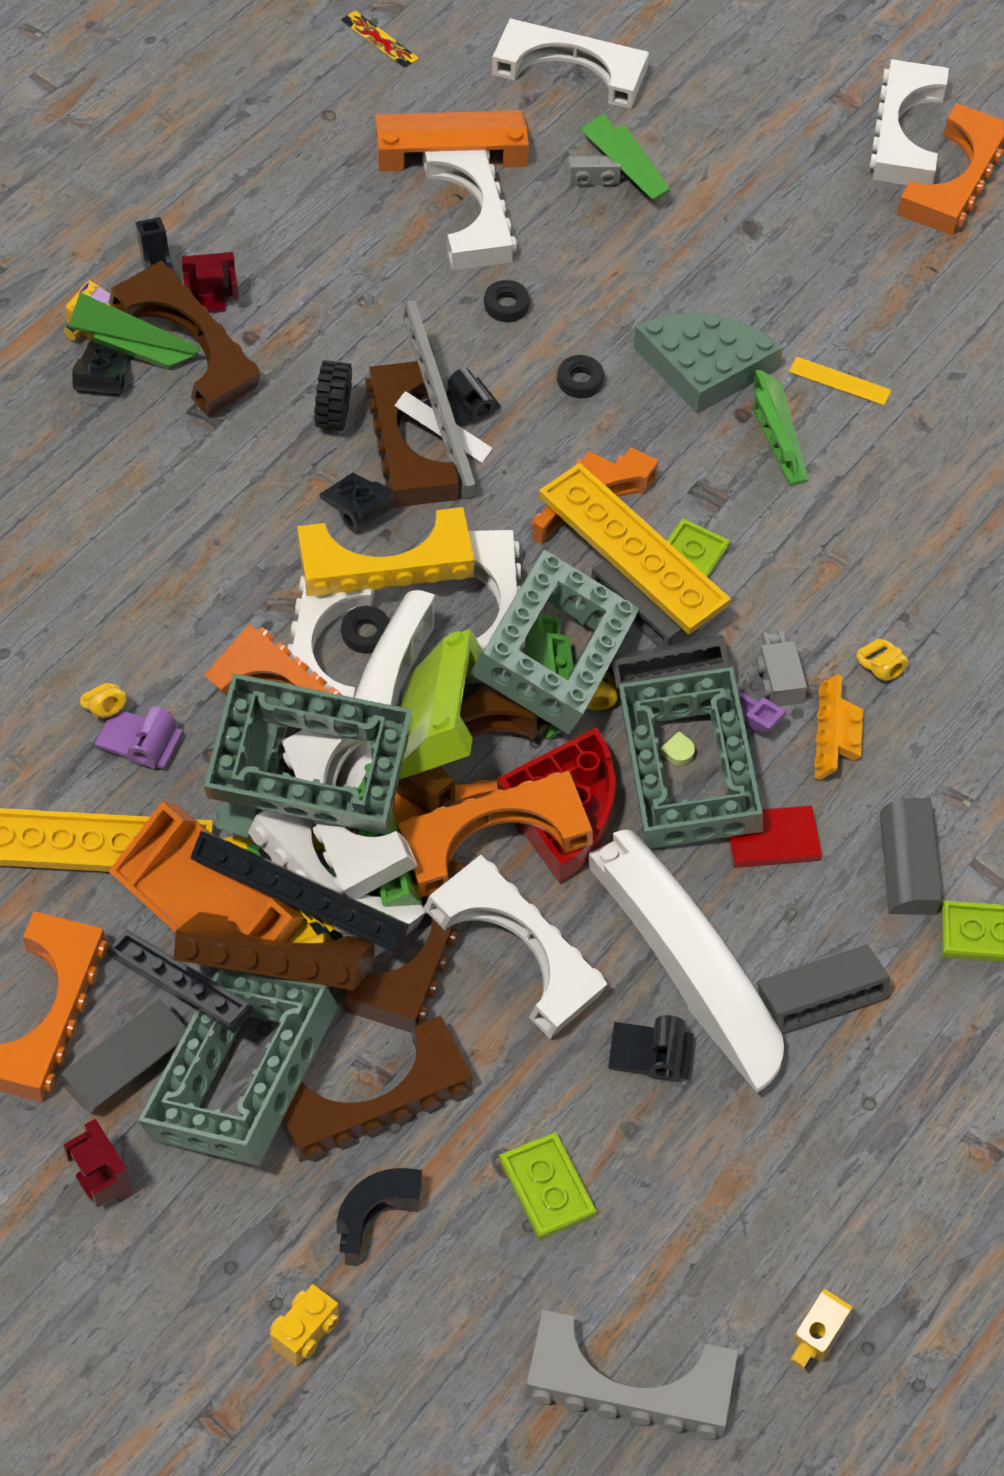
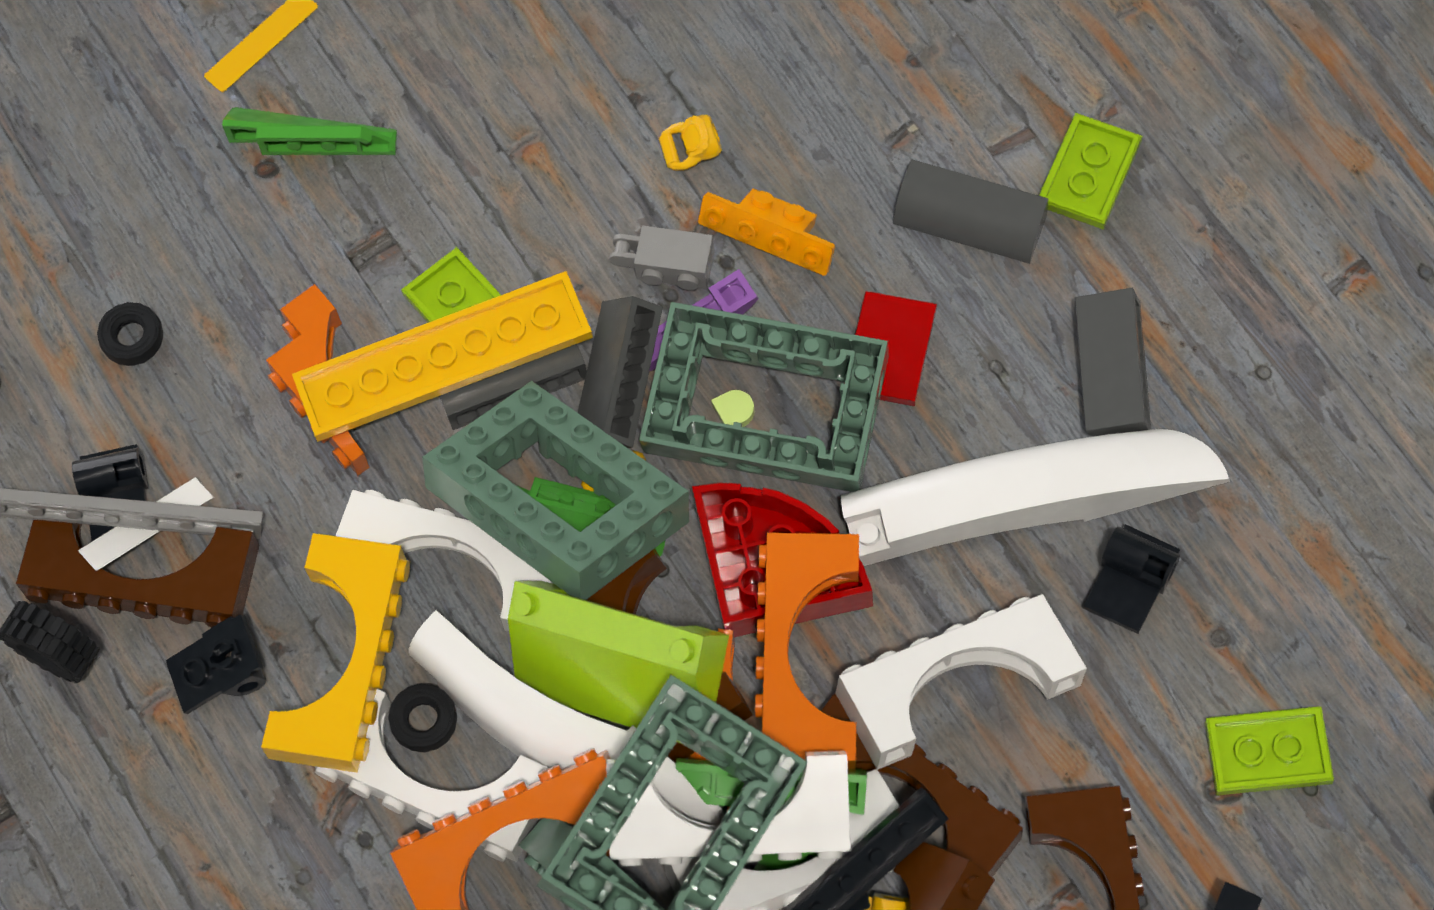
camera: 60 degrees left, 10 degrees up
(705, 355) = (165, 176): sand green brick -> none

